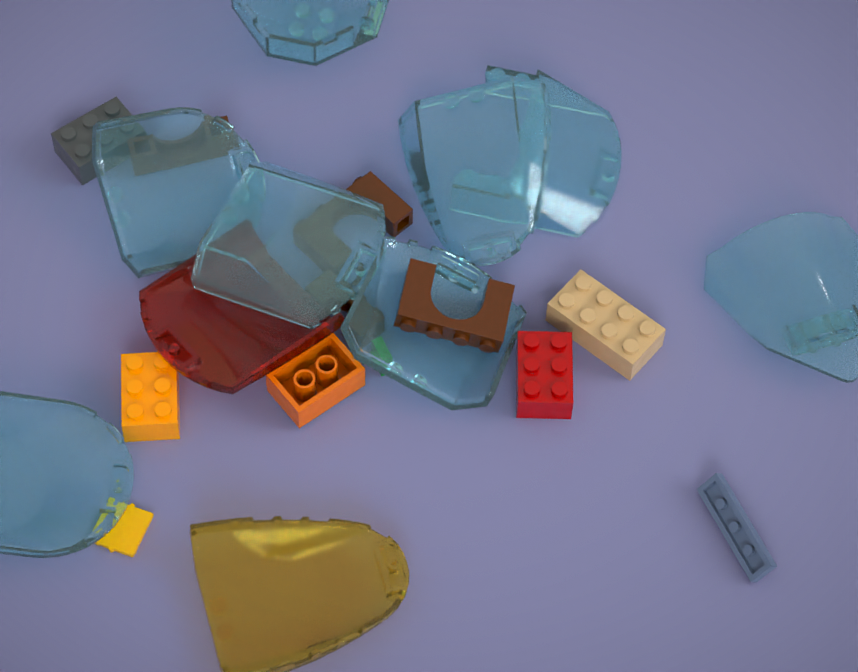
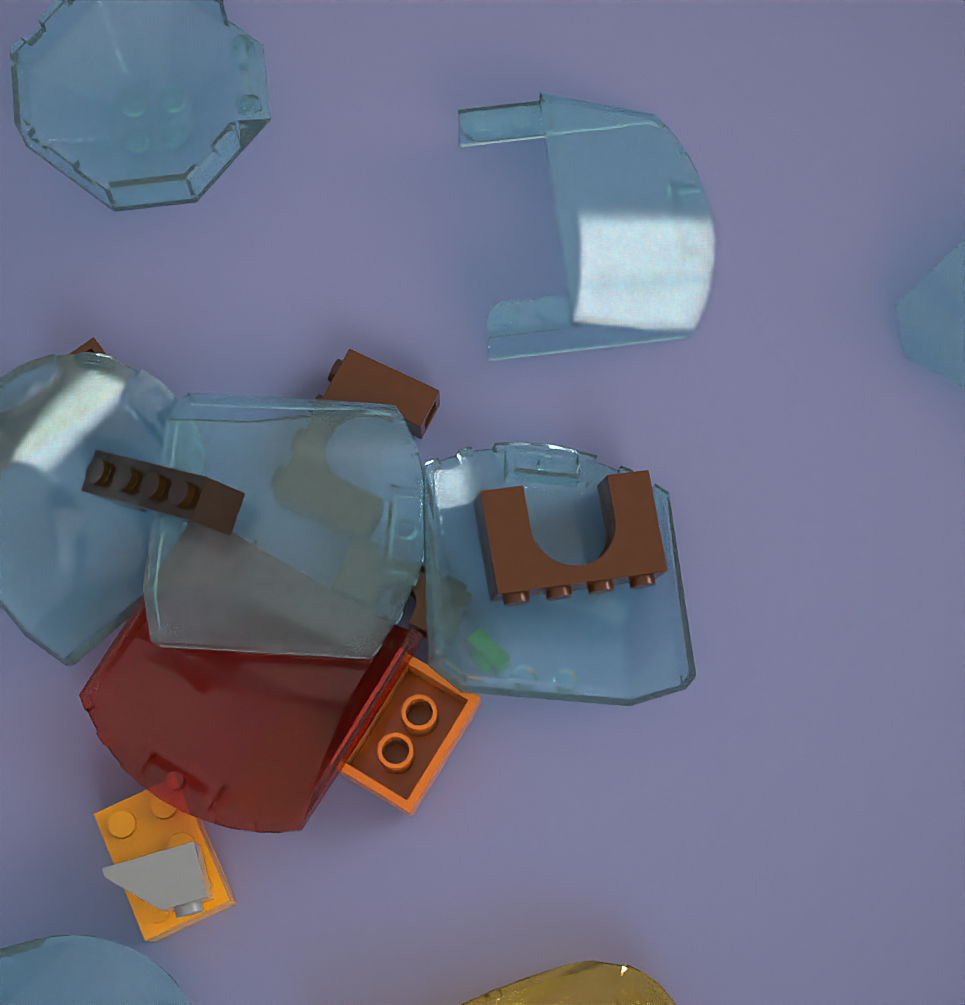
camera: 20 degrees left, 15 degrees up
(146, 391) = (166, 879): none -> light grey slope
(240, 197) = (163, 491): none -> dark brown arch
(480, 164) = (514, 284): clear light blue windscreen -> none
(544, 375) = (741, 592): red brick -> none
(605, 324) = (796, 474): tan brick -> none

